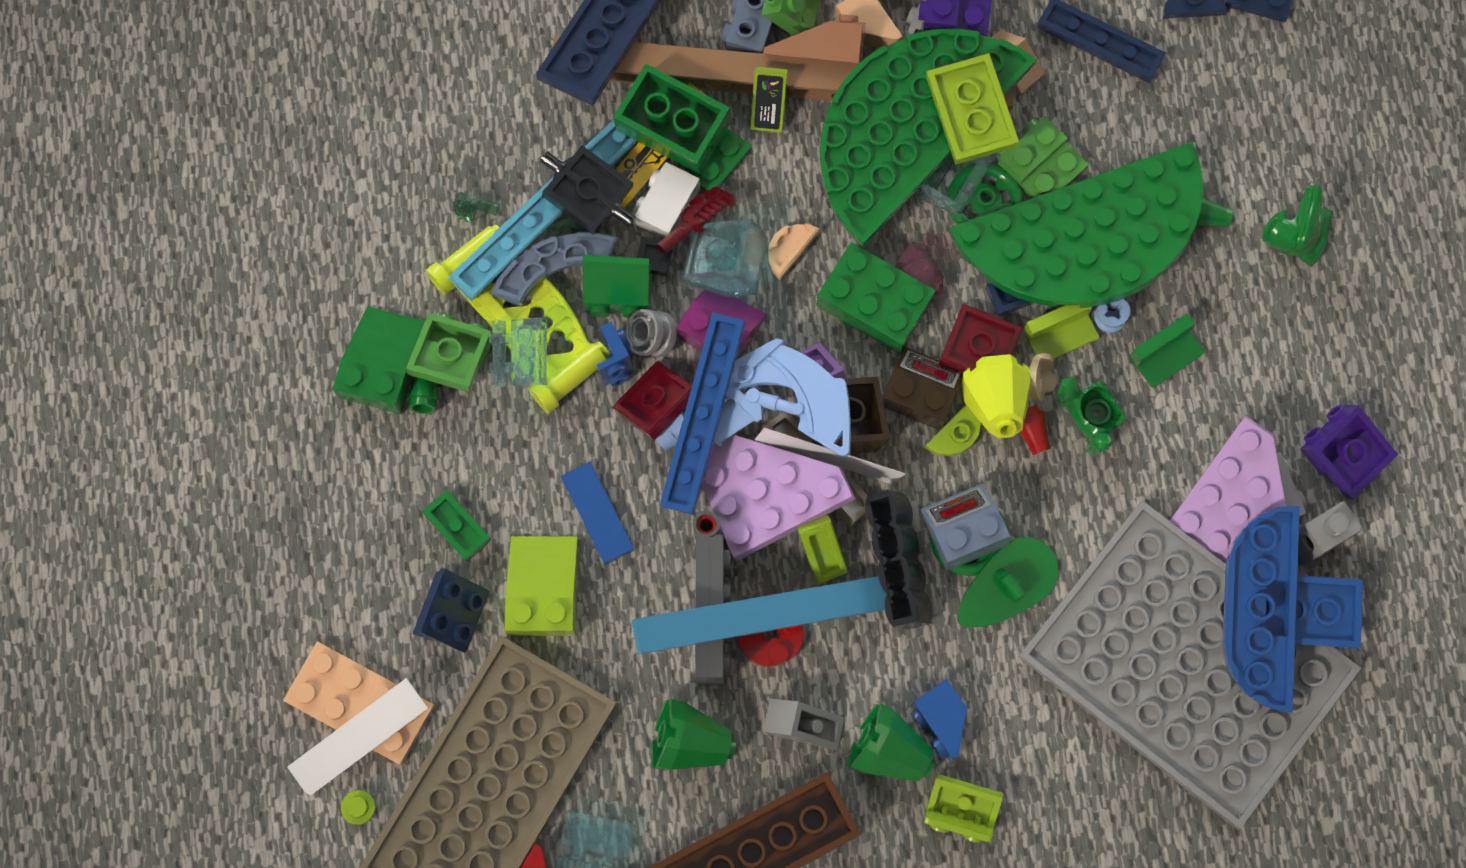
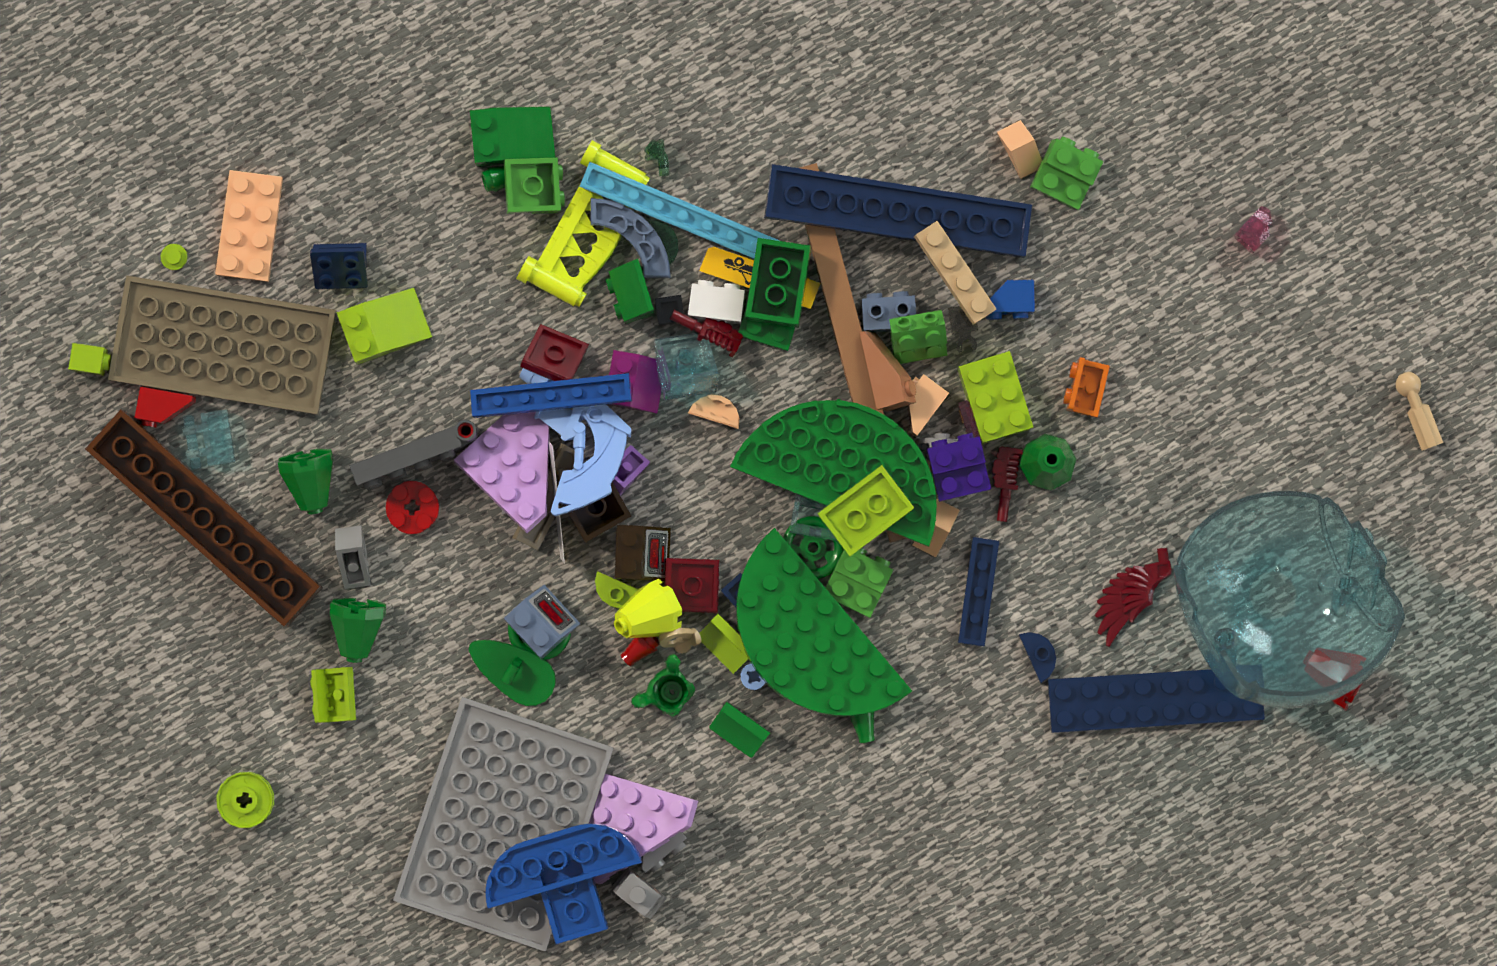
camera: 65 degrees right, 10 degrees up
(357, 737) = (222, 236): white sticker -> none
(456, 525) = (405, 244): green plate -> none
(528, 352) = (553, 245): clear light blue plate -> none
(587, 189) = (698, 239): black plate -> none
(597, 513) = (455, 344): blue tile -> none
(618, 367) = (582, 311): blue bracket -> none
(651, 333) = (605, 331): light grey wheel -> none
(757, 615) = (414, 496): dark azure tile -> none
(768, 99) = (826, 350): tile -> none
(822, 549) = (485, 523): lime tile -> none
(875, 298) = (697, 491): green brick -> none
(899, 568) = (493, 585): black brick -> none
(921, 266) = (734, 518): clear pink rock -> none
(943, 716) = (396, 656): blue slope -> none
(1306, 233) = (870, 801): green hair -> none
(1348, 449) = (710, 890): dark purple plate -> none

